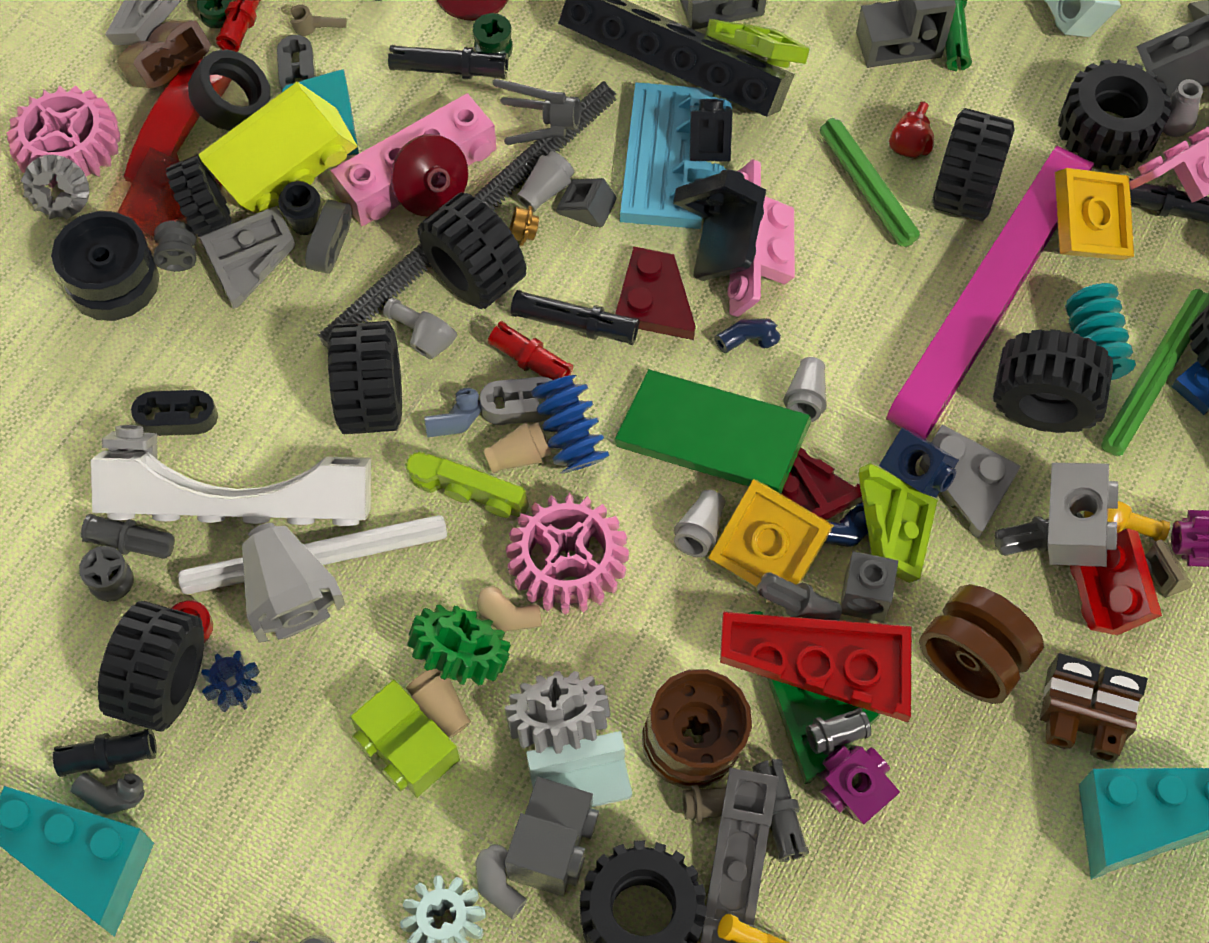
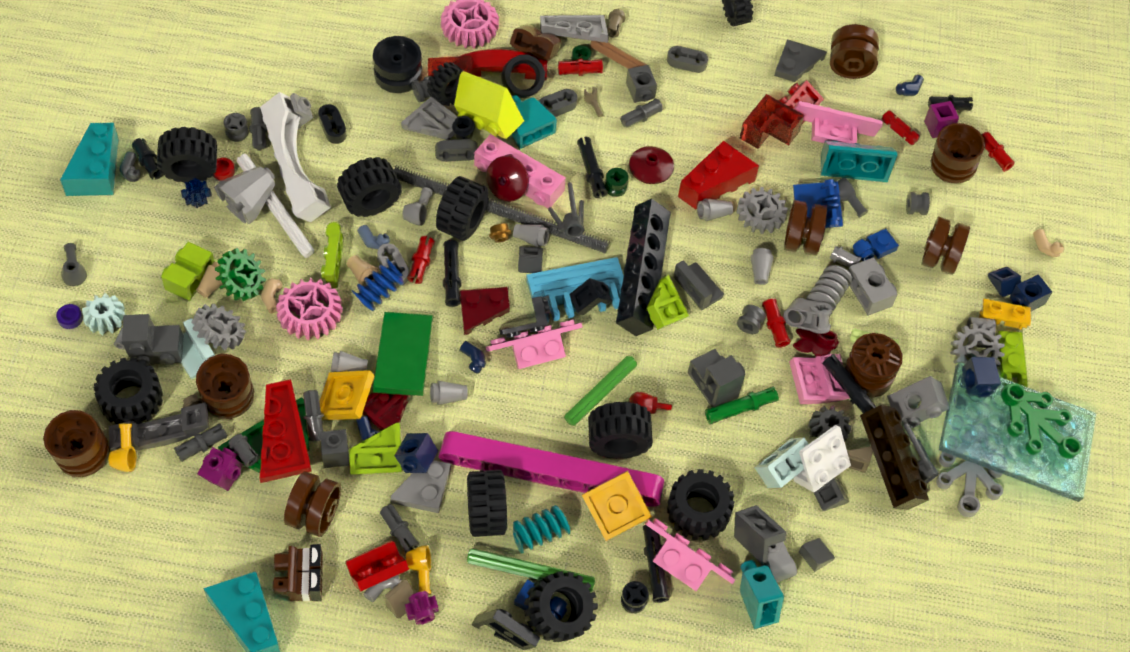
camera: 65 degrees right, 5 degrees down
(69, 178) = (436, 29): light grey gear -> none
(1076, 539) = (404, 532): light grey brick -> none
(1184, 108) = (723, 543): light grey cone -> none

